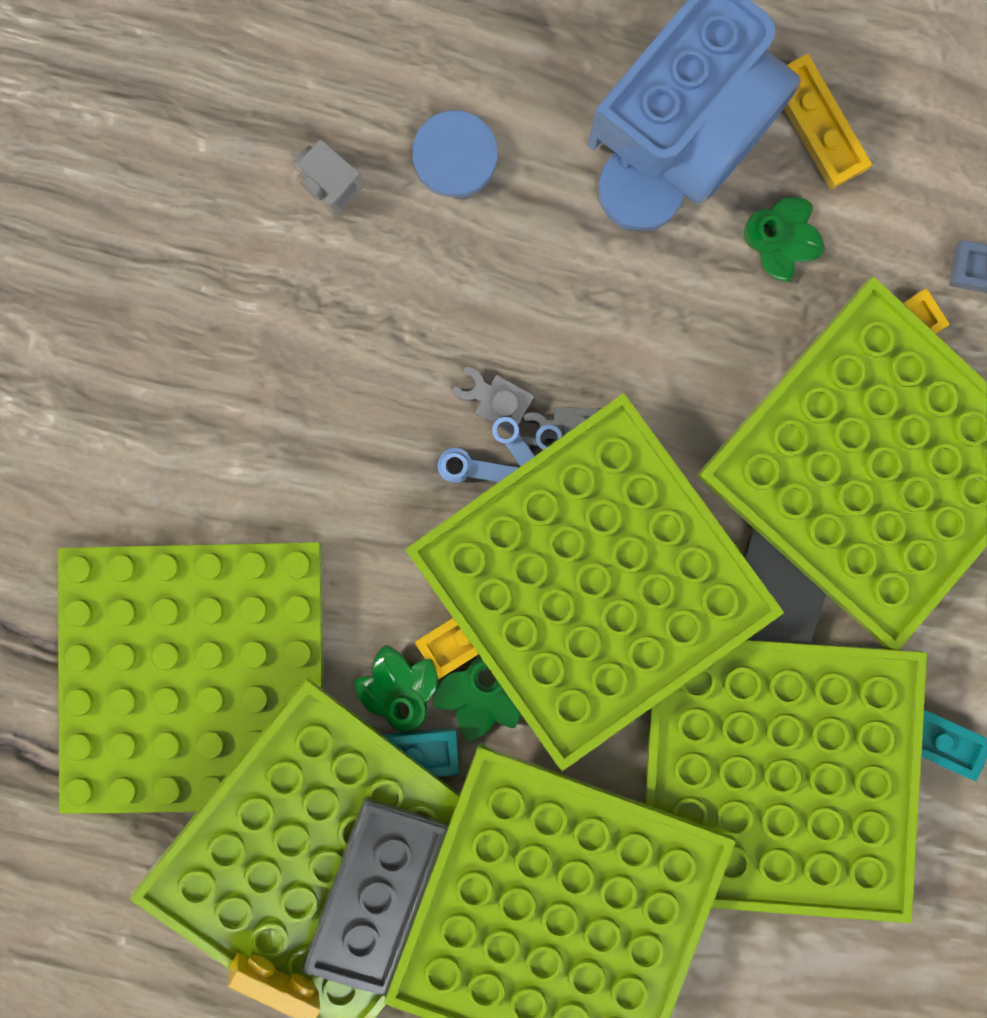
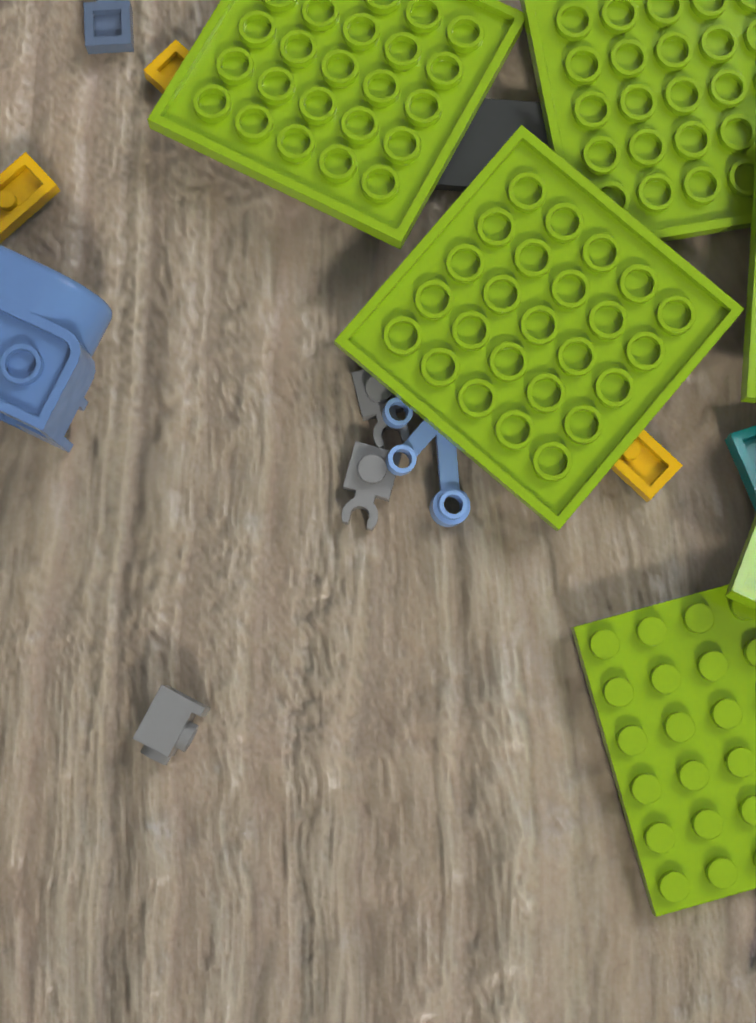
camera: 105 degrees left, 5 degrees down
(395, 683) = (697, 507): green plate -> none
(454, 154) = (111, 592): medium blue tile -> none
(475, 703) = (692, 423): green plate -> none
(634, 199) = (118, 389): medium blue tile -> none
(790, 238) = (121, 220): green plate -> none

